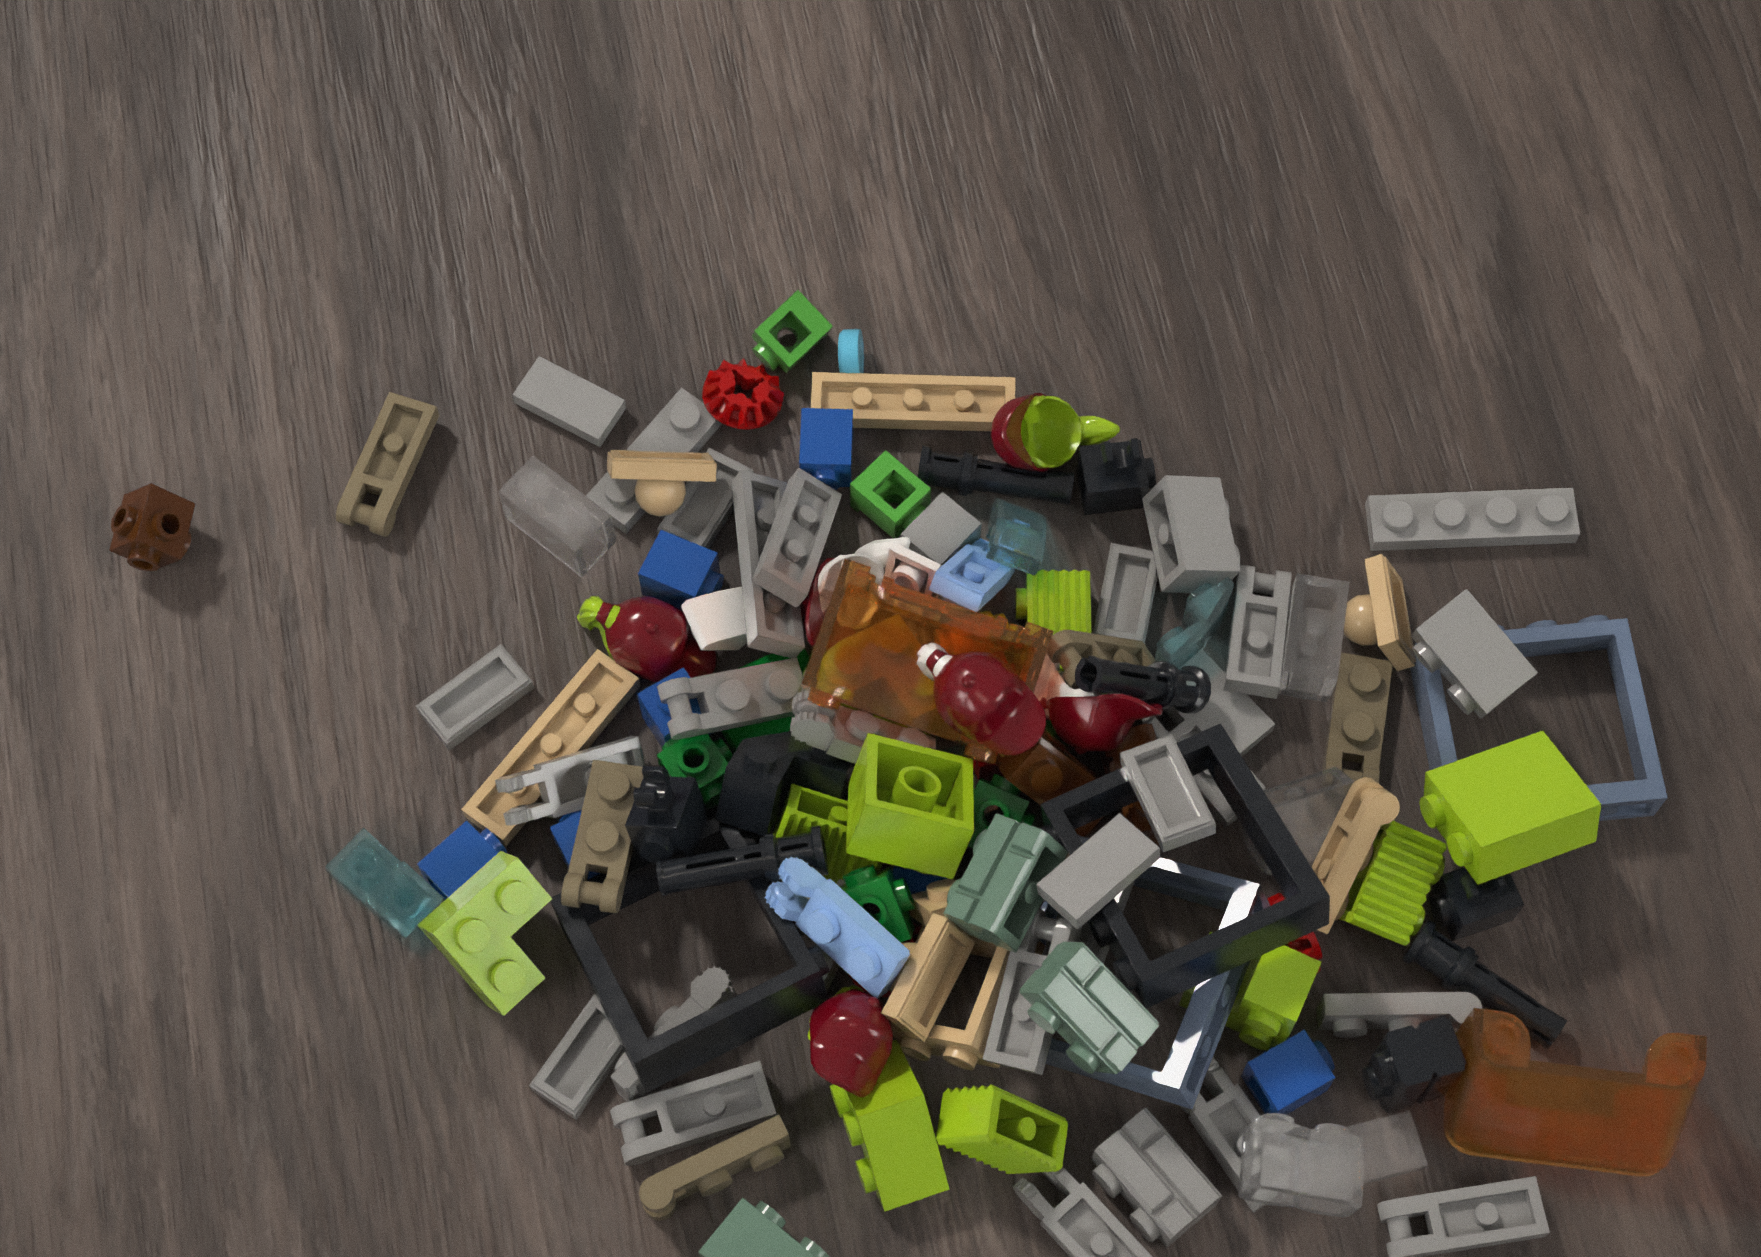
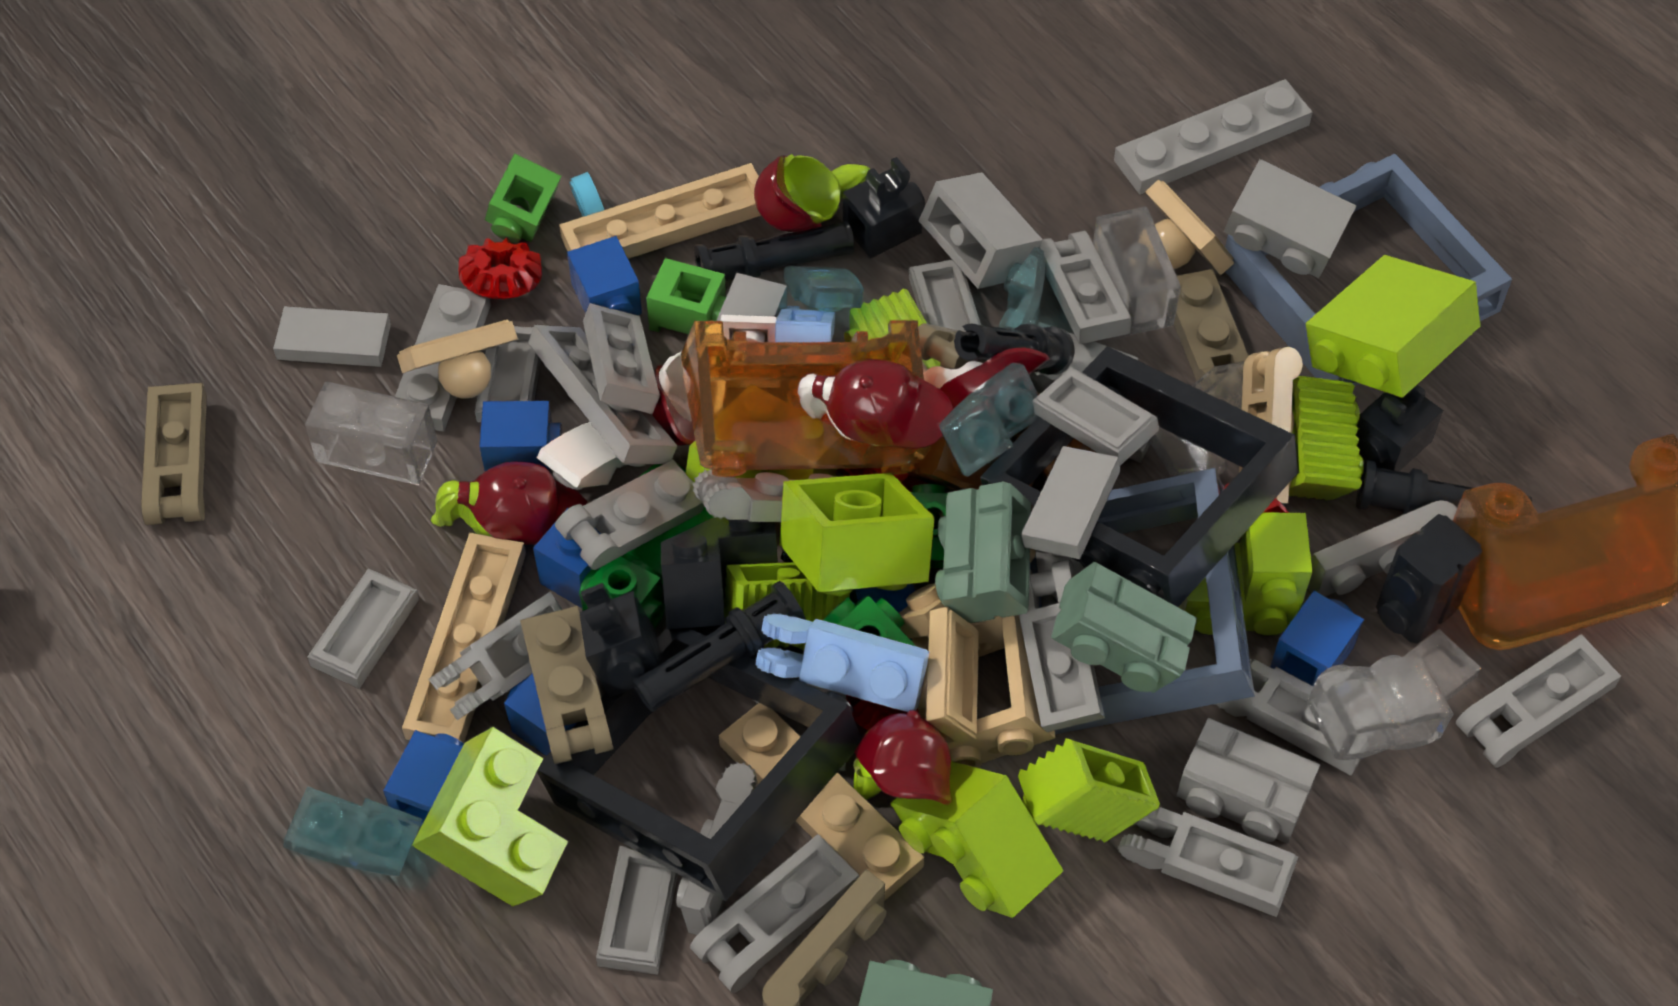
camera: 25 degrees left, 10 degrees down
(798, 1090) = (837, 811): none -> tan plate
(1078, 748) = (989, 417): none -> clear light blue slope

